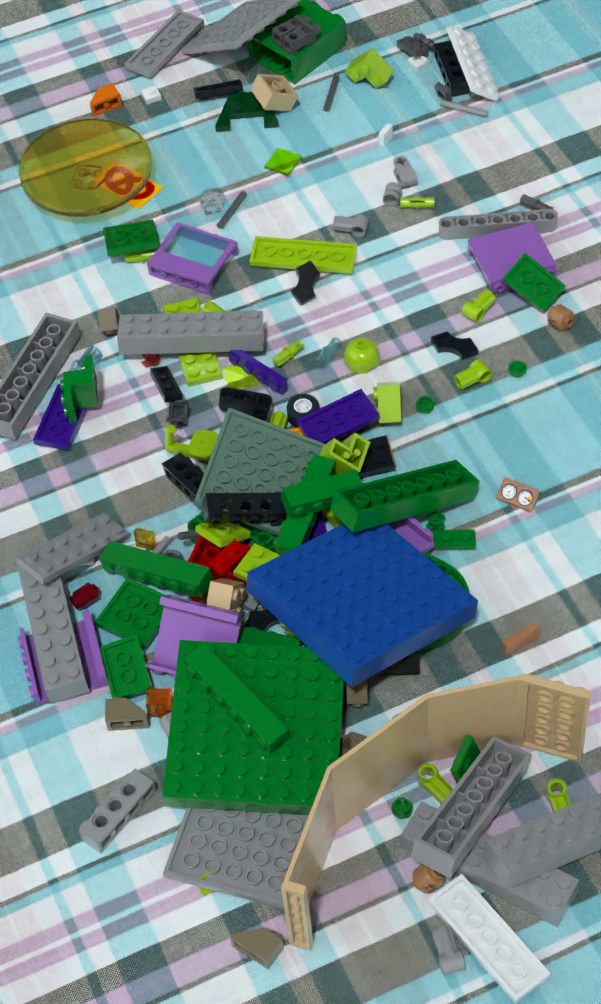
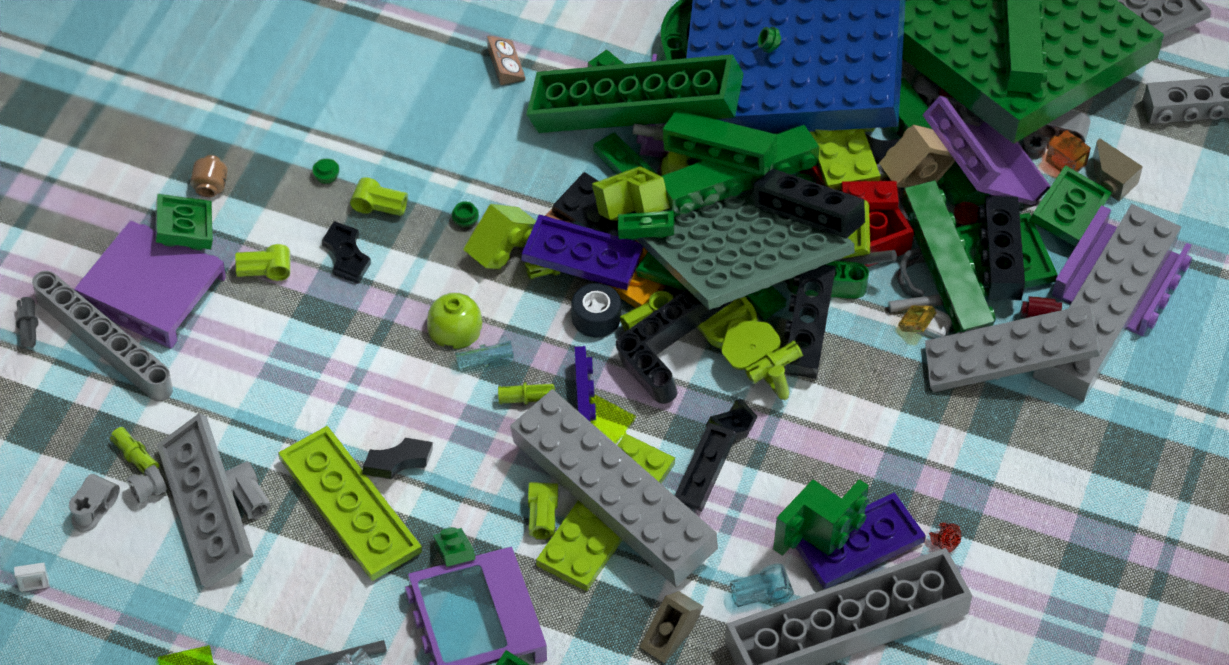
camera: 140 degrees left, 0 degrees up
(22, 450) = (948, 537): none -> clear red plate
(124, 598) = (1003, 248): none -> black brick
(183, 442) = (780, 357): none -> lime pin
(234, 268) = (454, 546): none -> green plate
(315, 440) = (646, 225): none -> green plate
(361, 559) = (769, 39): none -> green plate
(363, 205) = (204, 500): none -> light grey plate

